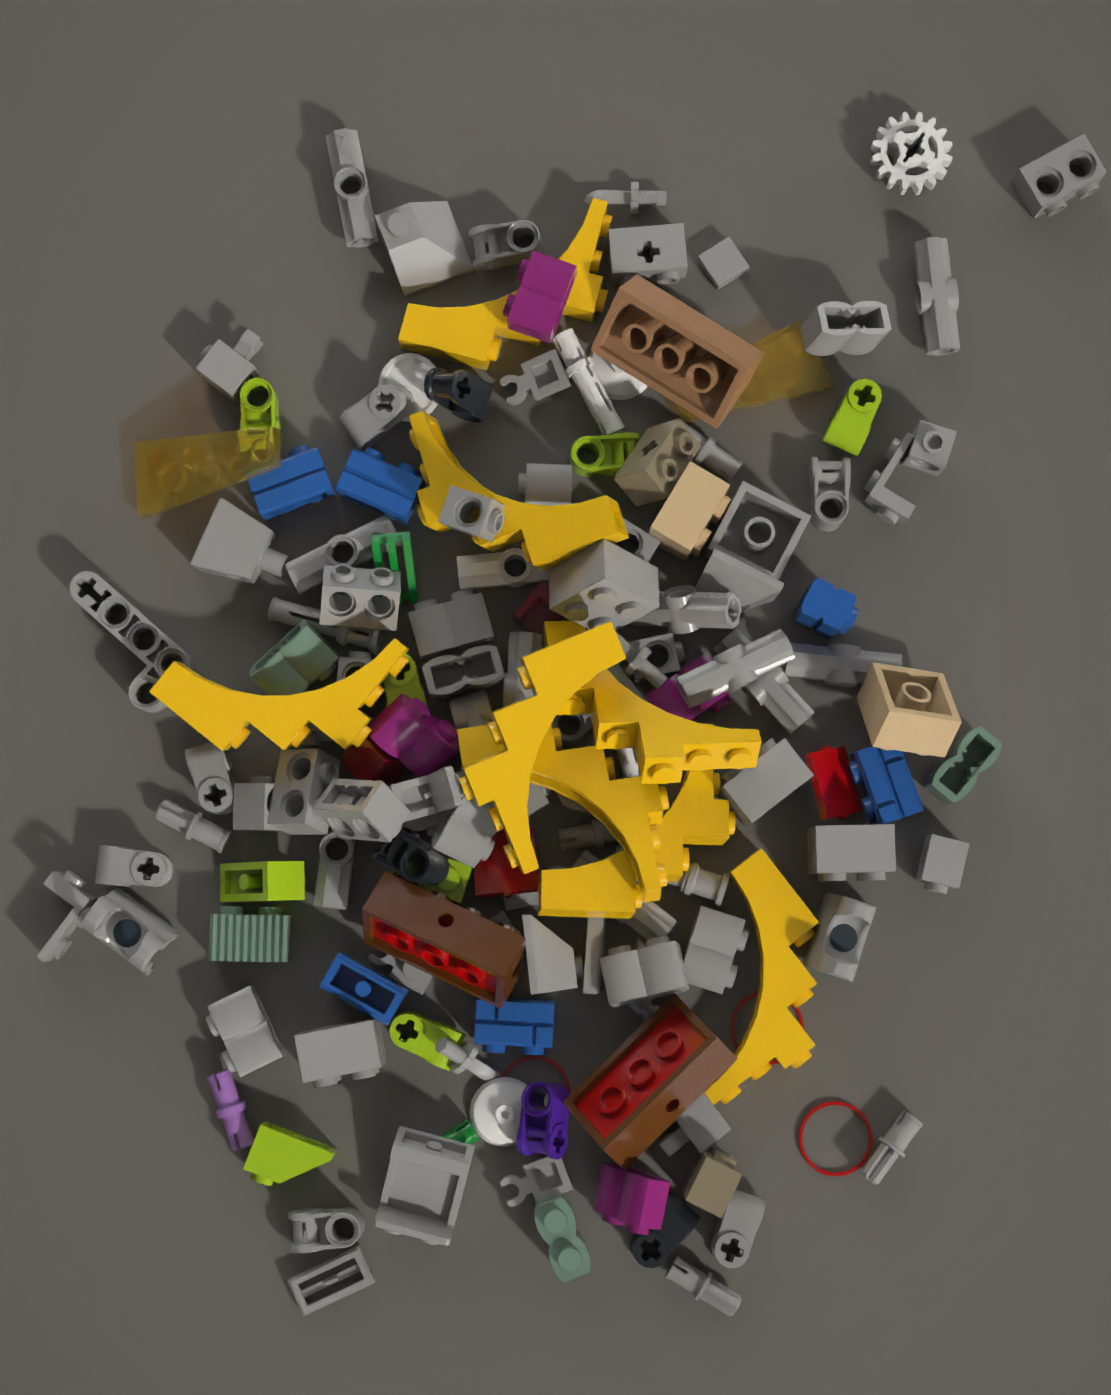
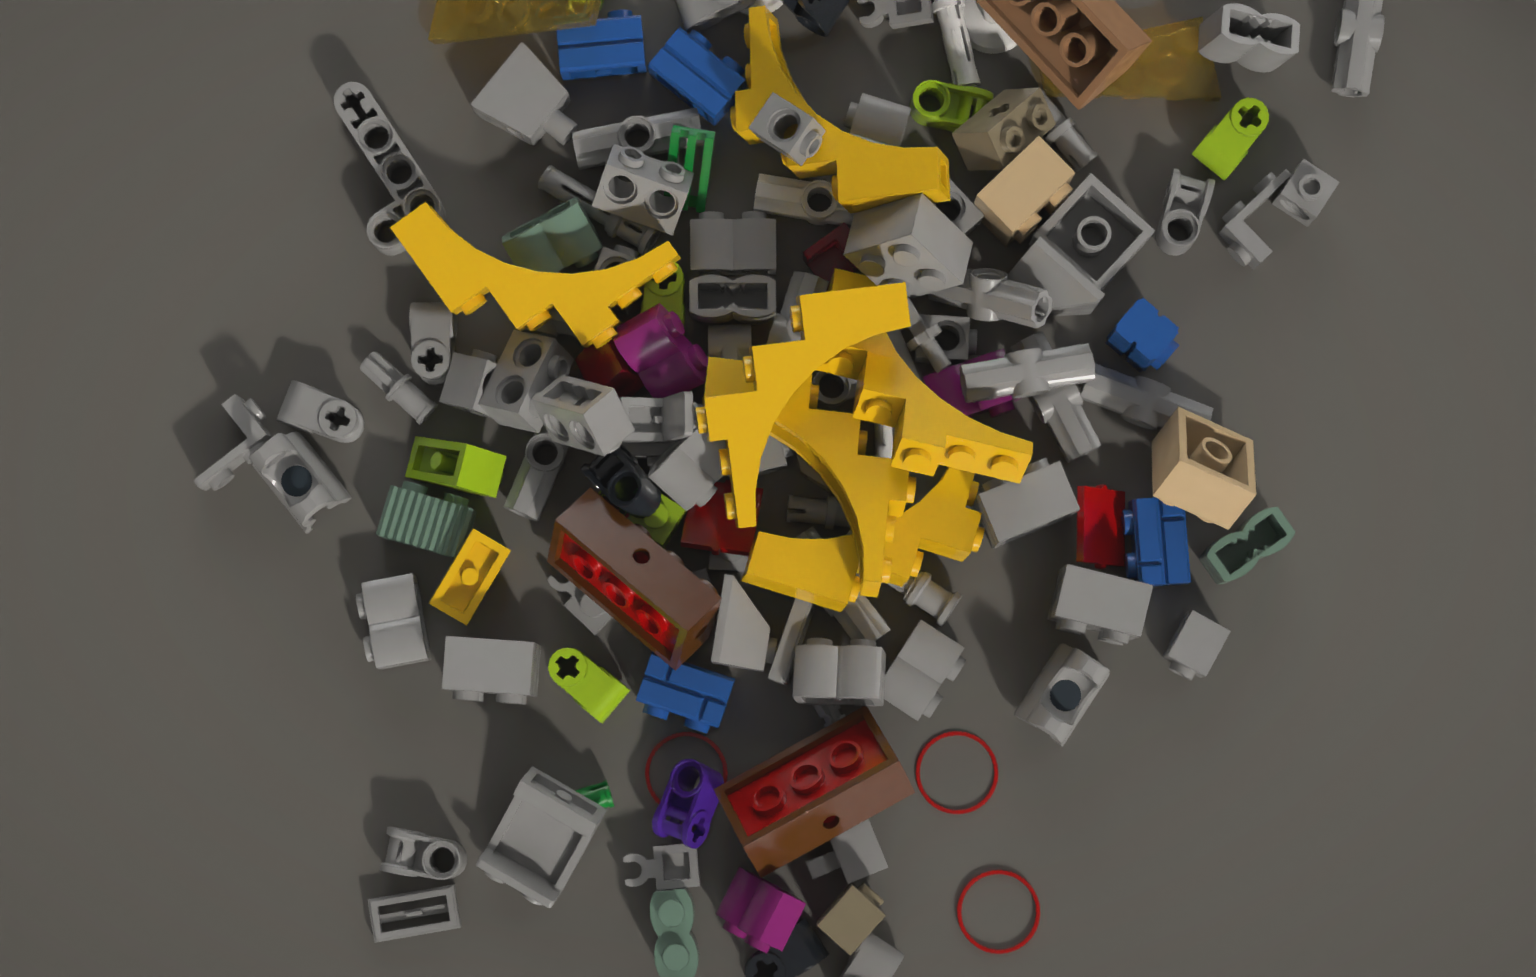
camera: 20 degrees right, 0 degrees up
(231, 1109) = (356, 701): medium lavender pin -> none
(283, 1154) = (399, 764): lime slope -> none
(300, 975) = (469, 576): none -> yellow panel
(364, 988) = (534, 609): blue brick -> none
(465, 1058) = (621, 714): light grey piece -> none
(497, 1110) = (640, 781): white piece -> none
(783, 980) = (963, 777): yellow arch -> none
(891, 1146) = (1056, 936): light grey axle -> none

